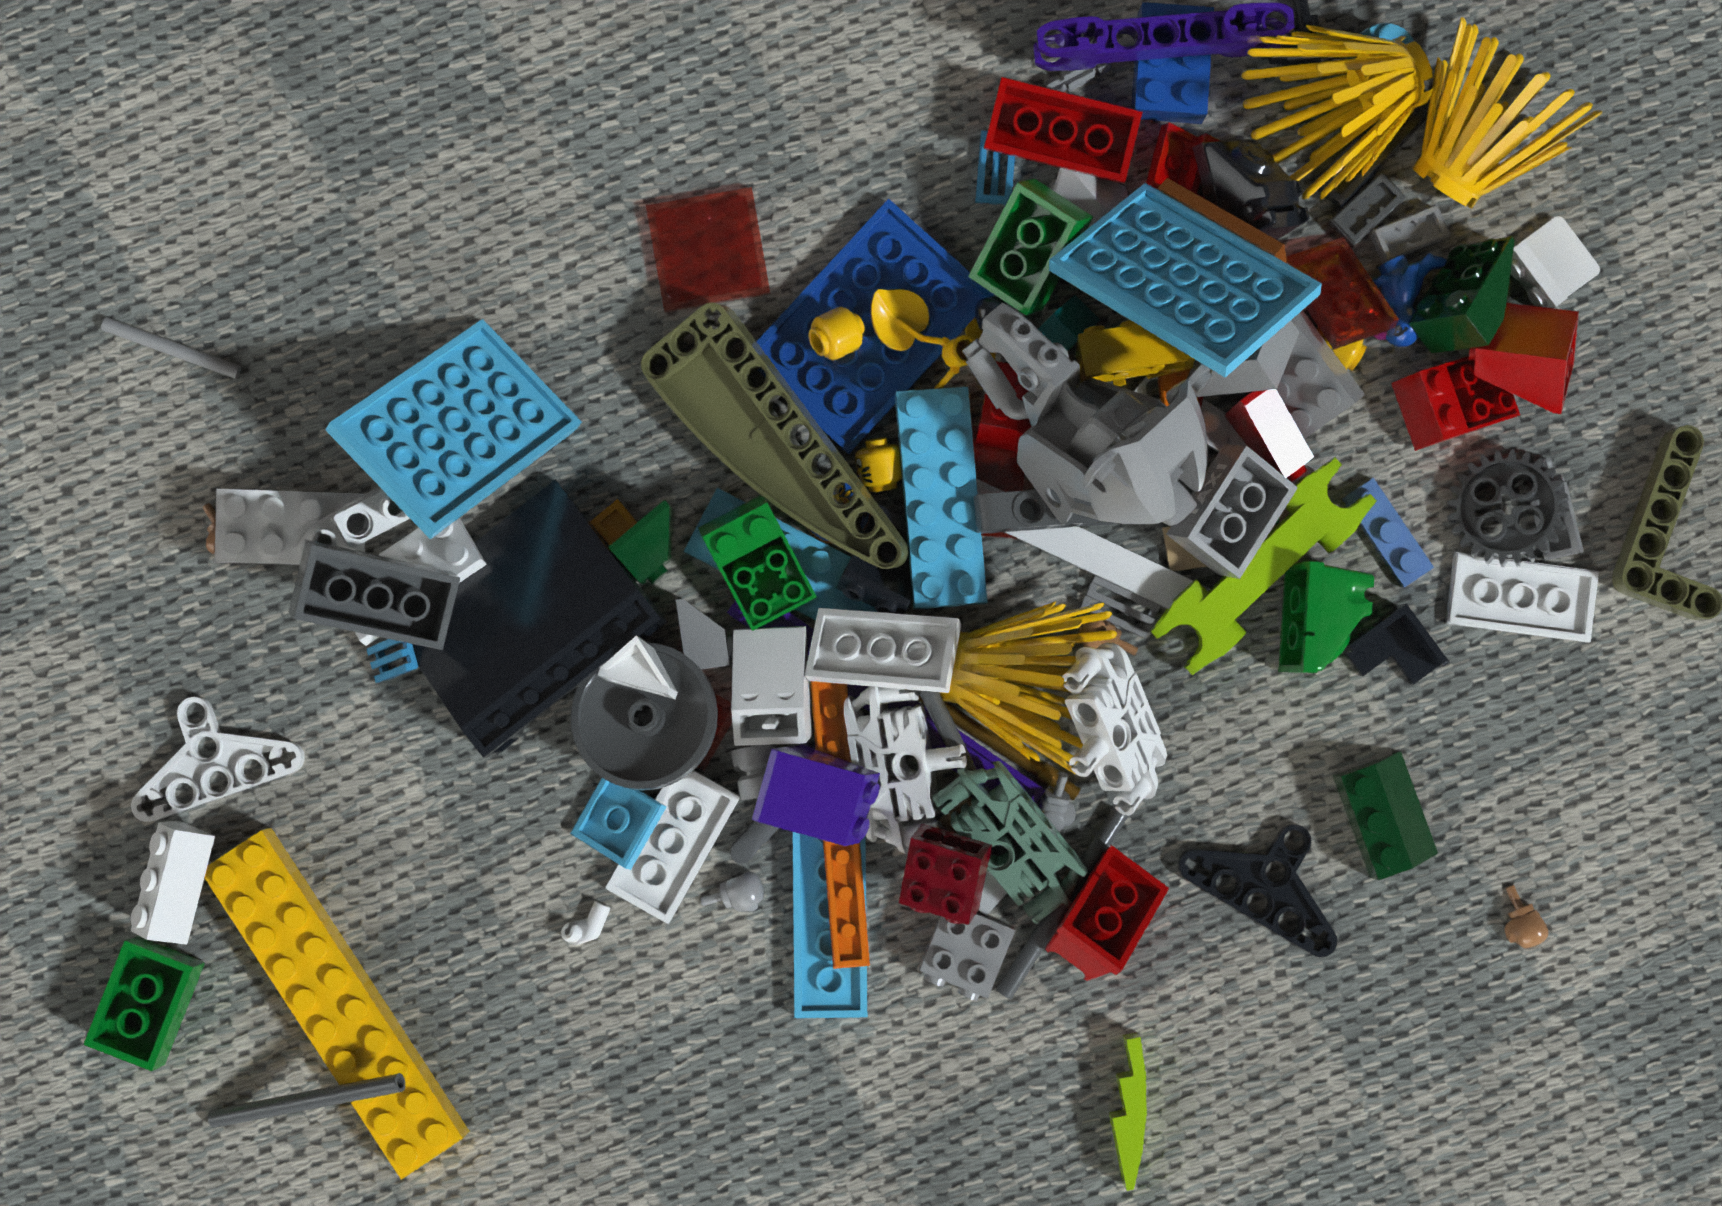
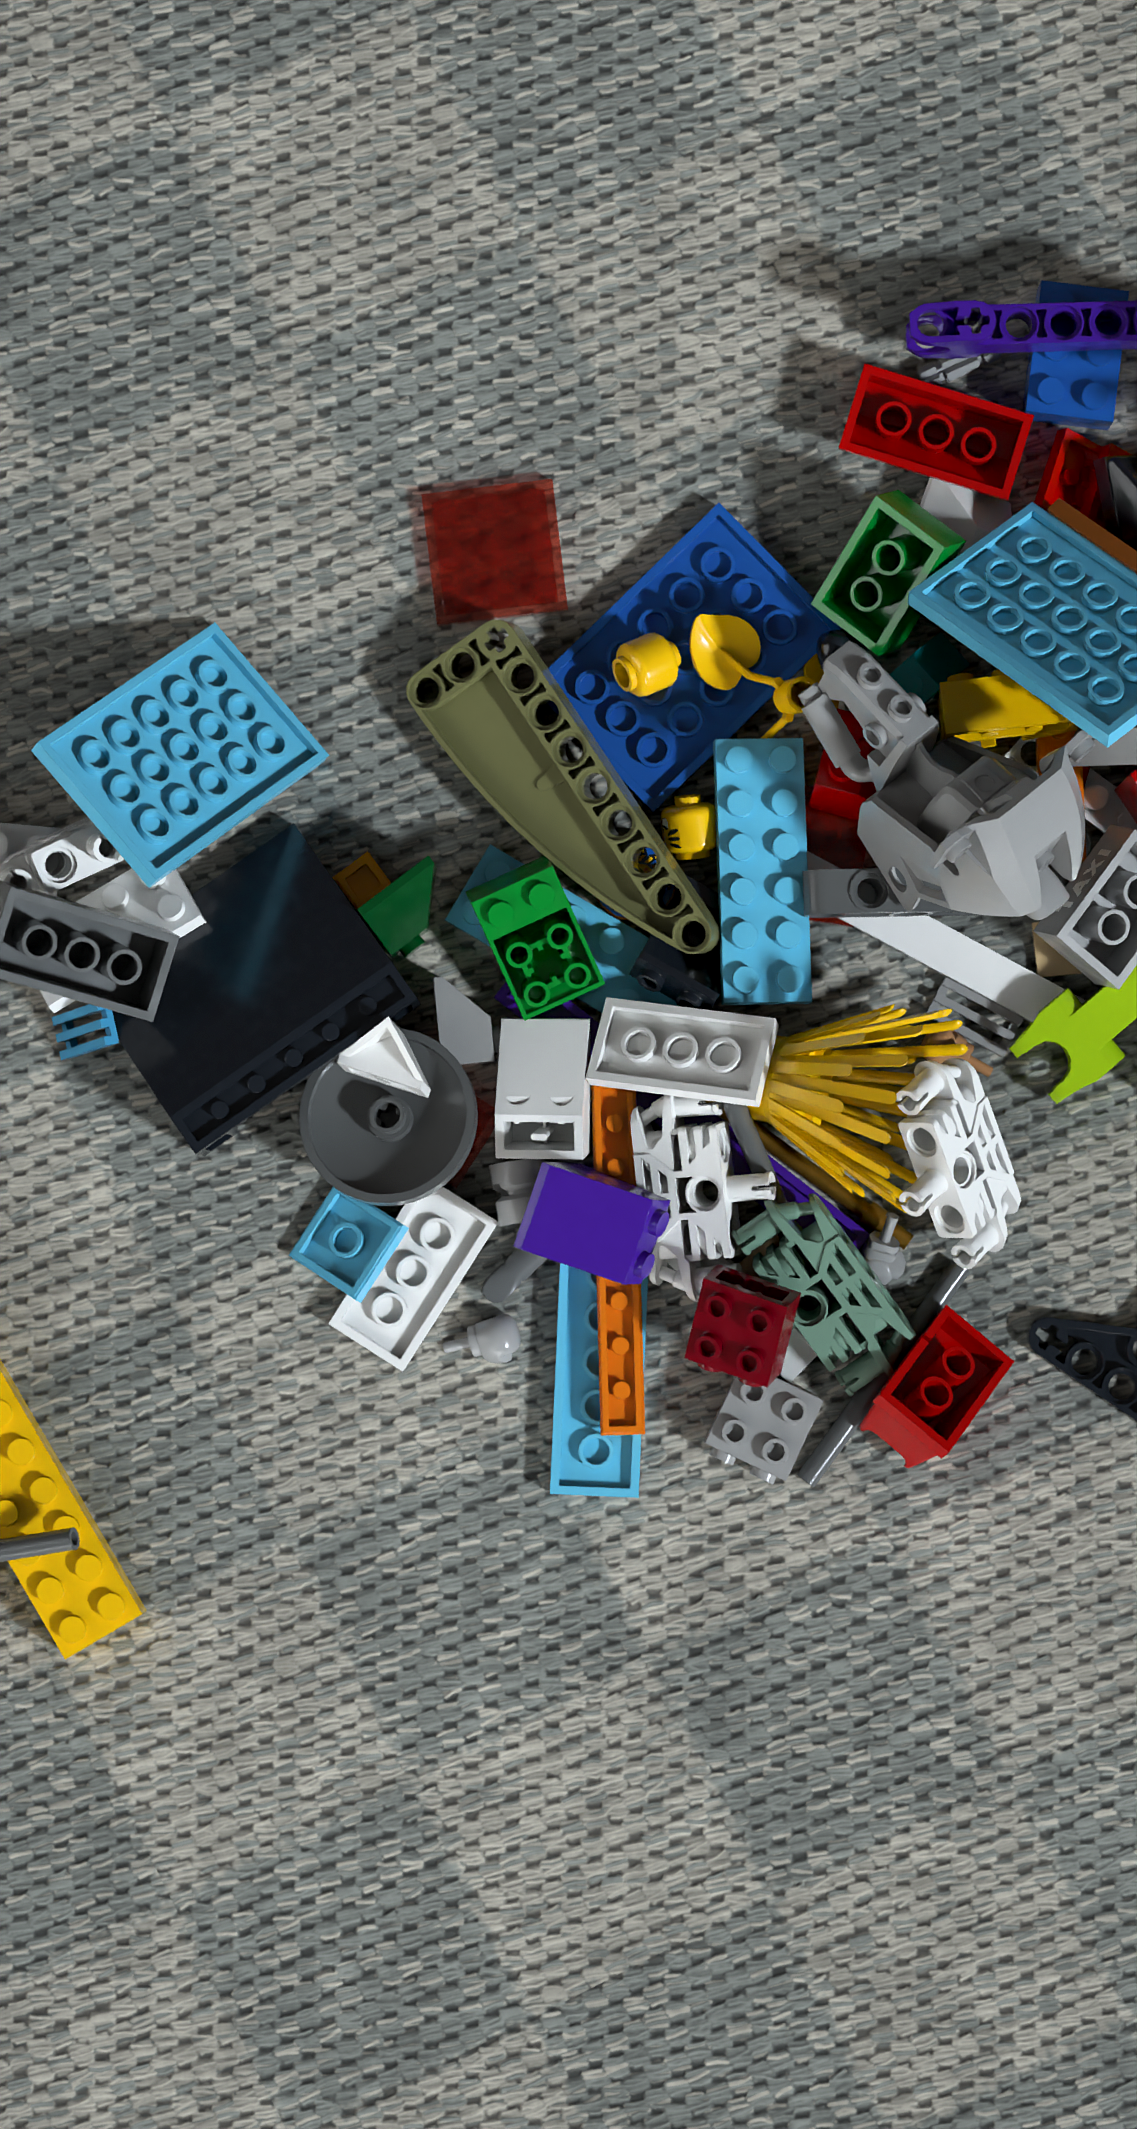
camera: 10 degrees right, 0 degrees up
(588, 928) = (303, 1372): white arm -> none
(993, 198) = (847, 507): dark azure tile -> none
(1130, 1123) = (950, 1645): lime slope -> none

